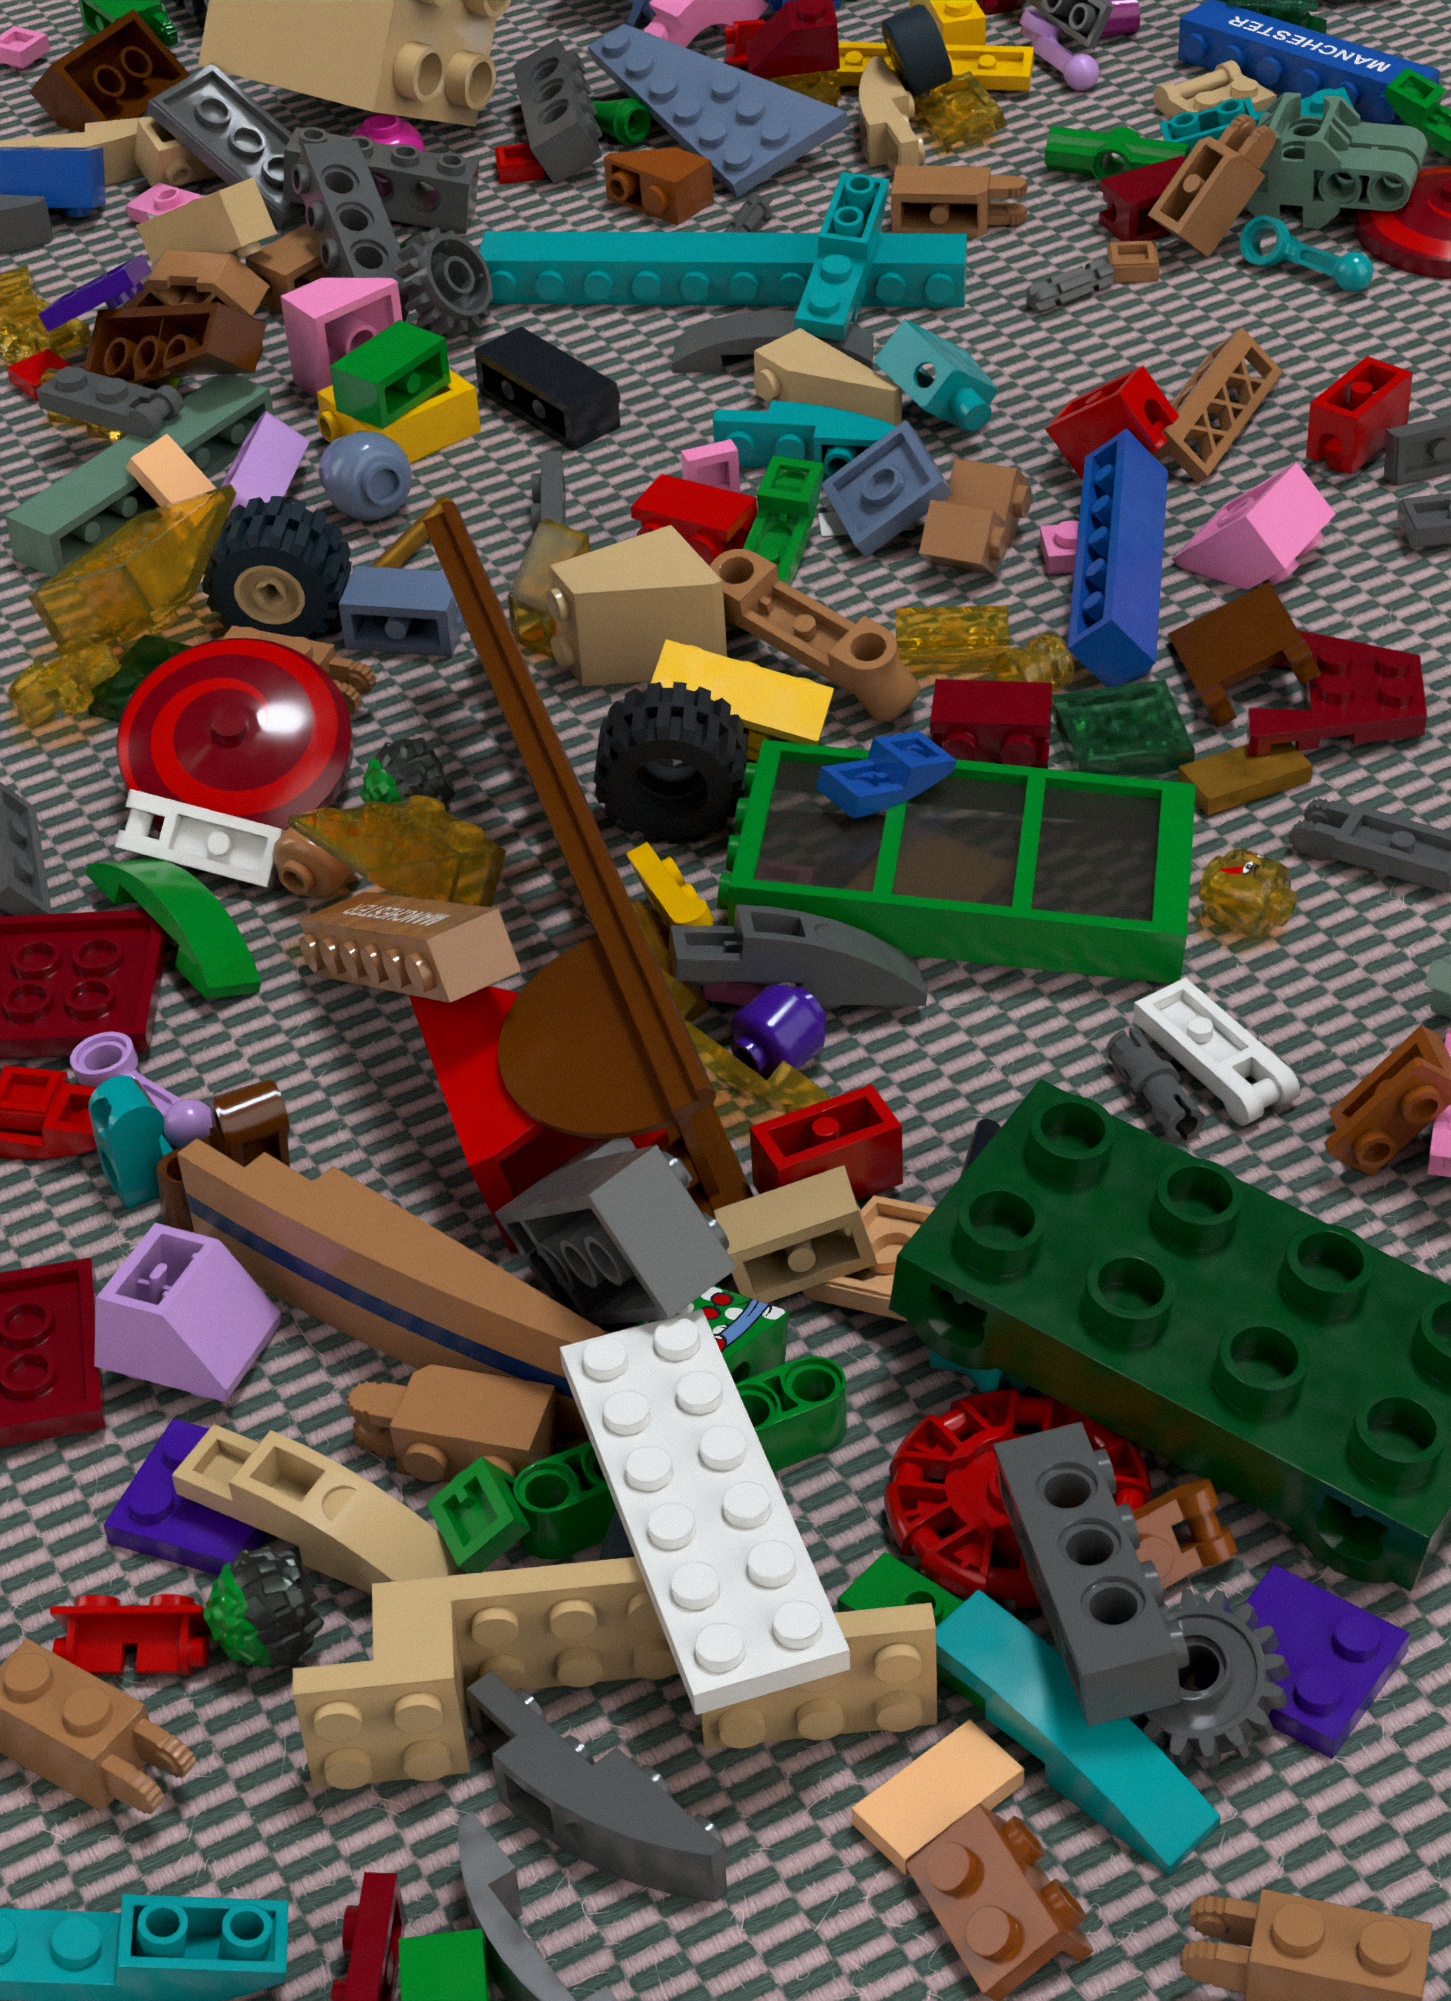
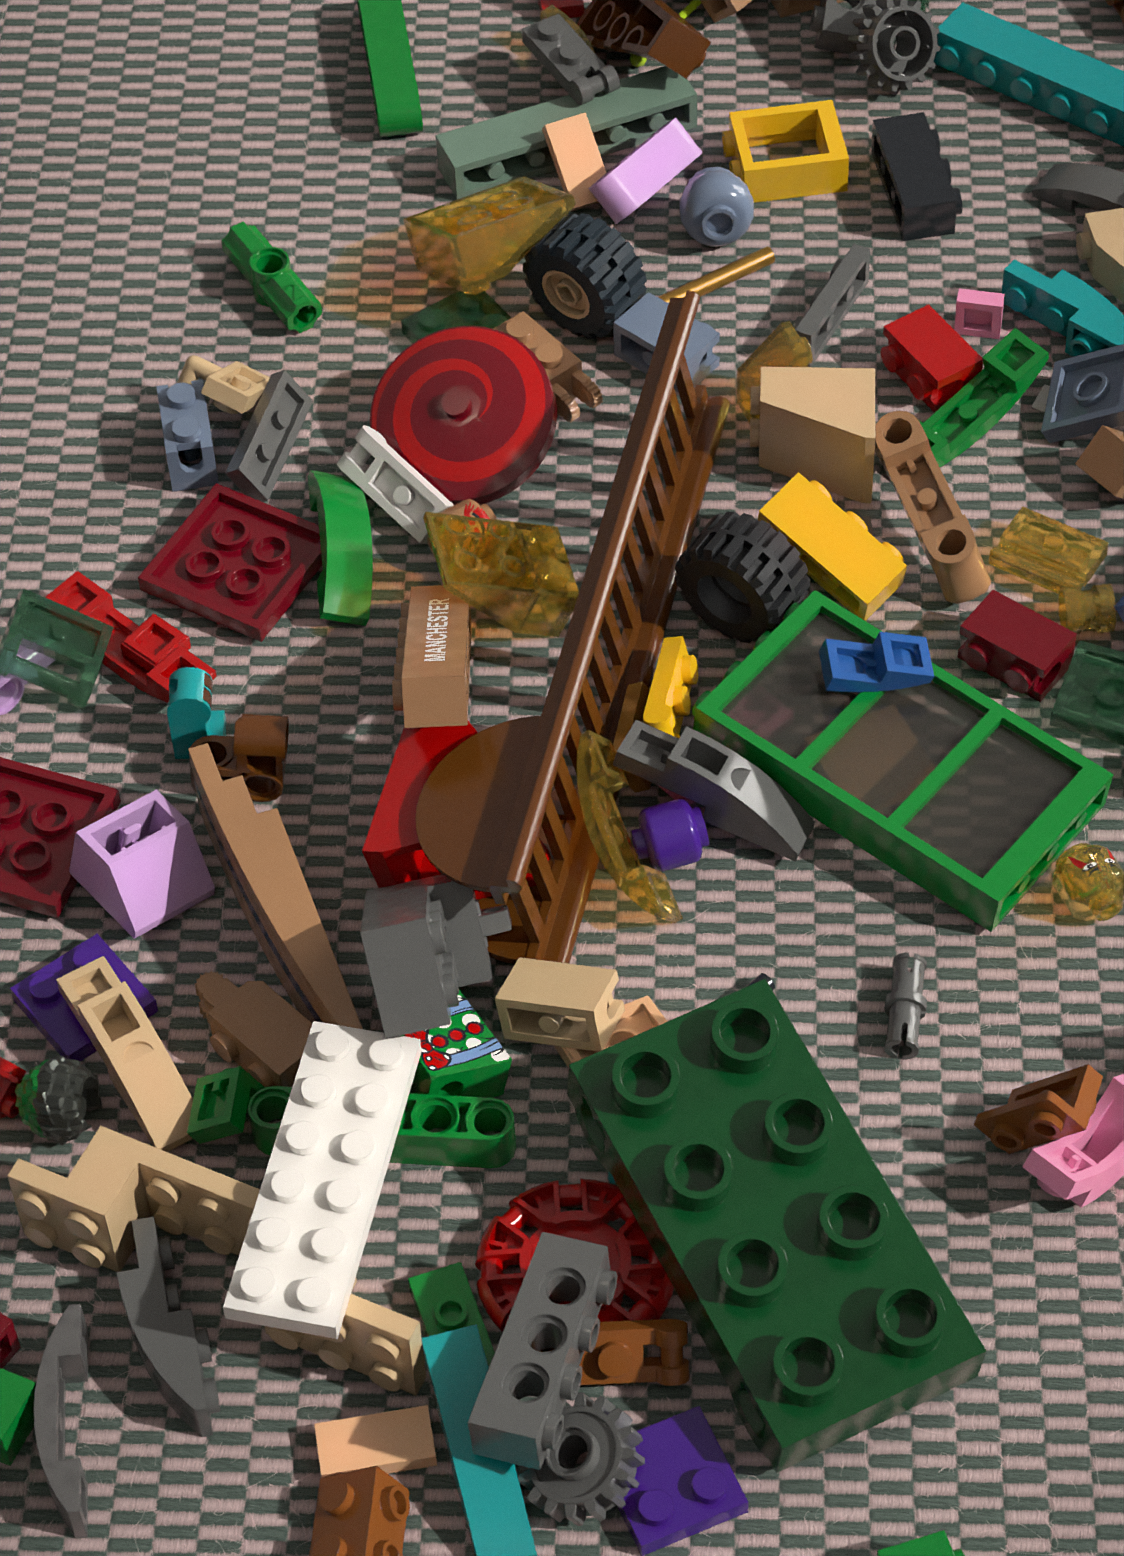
camera: 30 degrees right, 10 degrees up
(65, 681) = (387, 303): clear yellow plate -> none
(182, 1118) = (229, 663): lavender piece -> none
(332, 320) = (786, 61): bright pink slope -> none
(390, 374) = (782, 125): green brick -> none
(405, 771) = (563, 502): pearl dark grey piece -> none
(840, 1131) = (636, 944): red brick -> none
(1216, 1050) = (968, 998): white plate -> none

